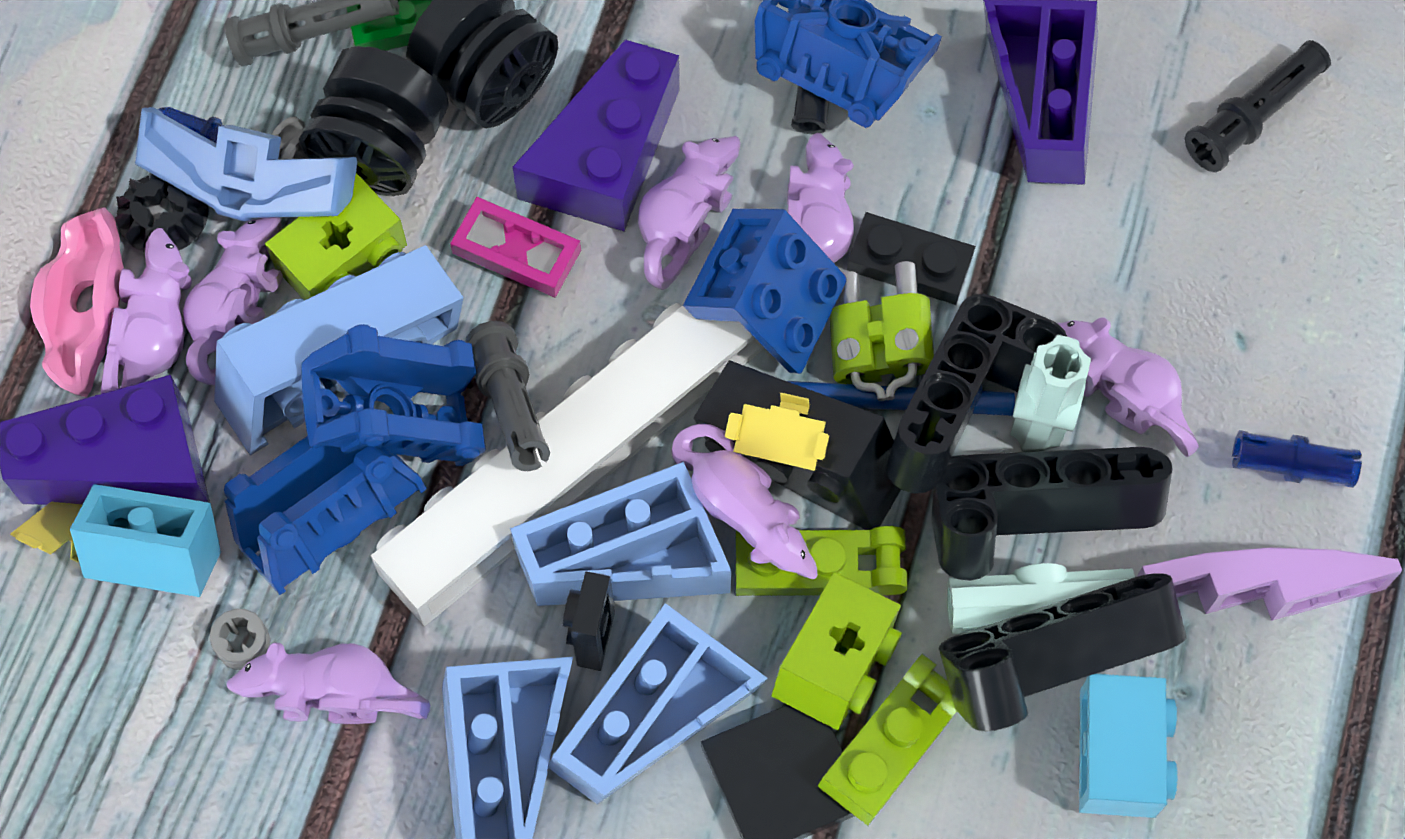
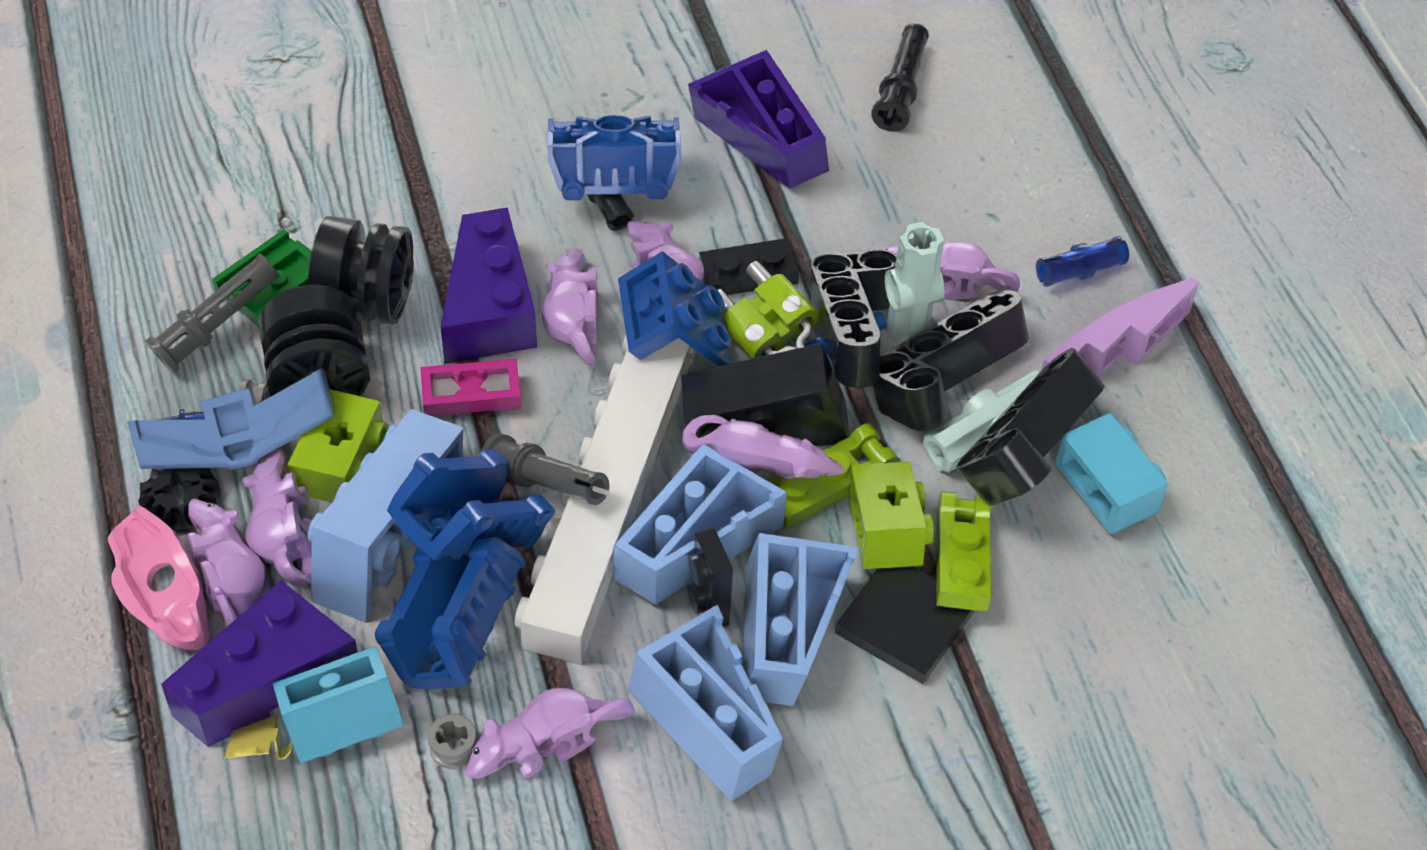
camera: 35 degrees left, 15 degrees down
(779, 433) = (758, 390): light yellow piece -> none

